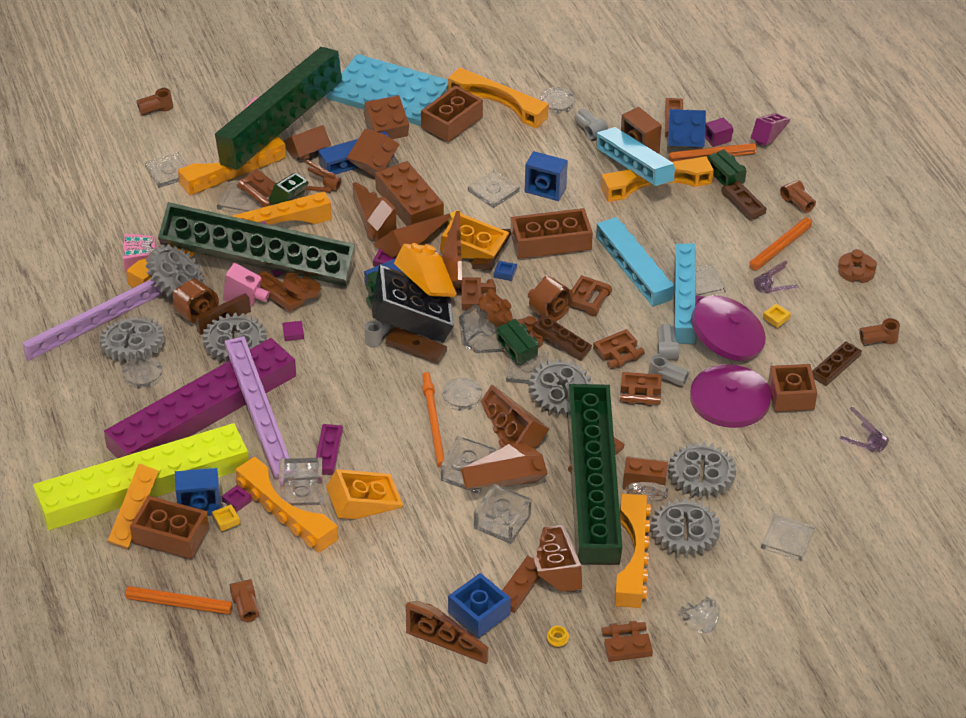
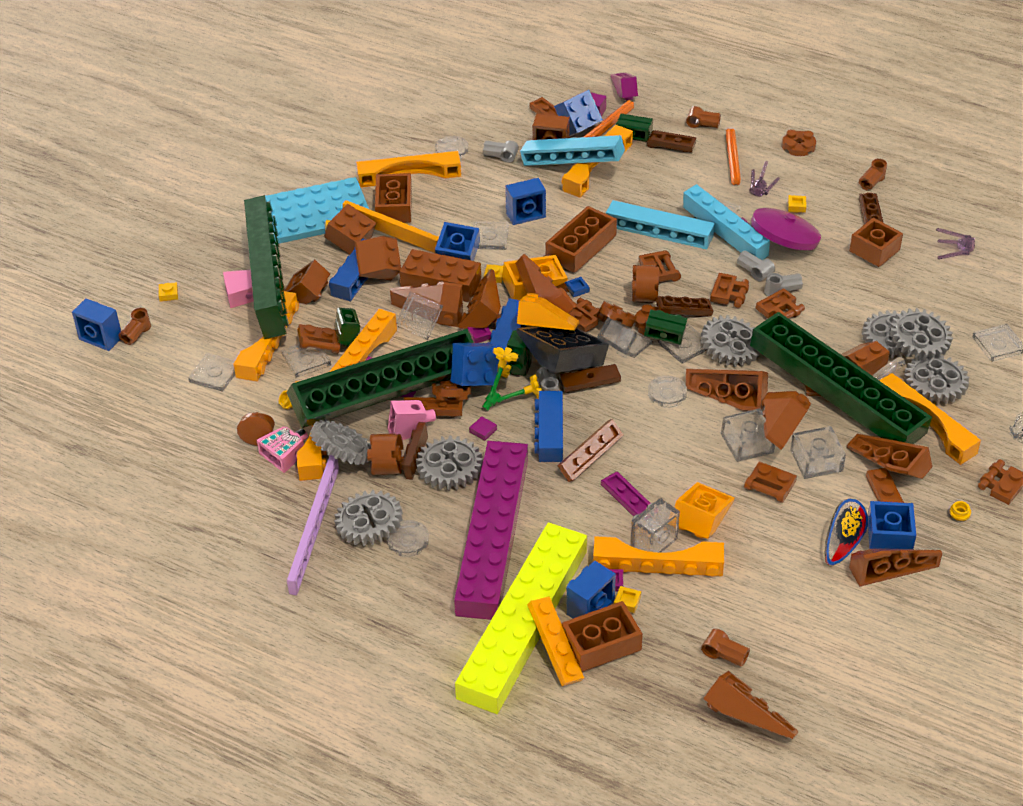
camera: 40 degrees left, 0 degrees up
(127, 83) = (97, 324): none -> blue brick
(137, 223) = (254, 427): none -> dark orange piece
(178, 600) = (675, 688): orange axle -> none
(204, 642) = (734, 699): none -> dark orange wedge
(211, 90) = (168, 291): none -> yellow plate
(257, 403) = (547, 496): lavender tile -> none
(326, 311) = (503, 370): none -> plant
(329, 275) = (474, 364): none -> blue brick
(330, 180) = (363, 301): dark orange plant -> none
(338, 360) = (550, 426): none -> blue brick
(342, 396) = (590, 450): none -> plate
(350, 216) = (419, 315): none -> clear tile
(422, 138) = (399, 229): none -> light orange tile
(429, 391) = (642, 404): orange bar -> none
(439, 581) = (845, 530): none -> shield
(449, 179) = (458, 241): none -> blue brick
(450, 509) = (771, 481): none -> dark orange plate
(730, 395) = (838, 275): magenta dish -> none
(731, 484) = (920, 334): none -> light grey gear

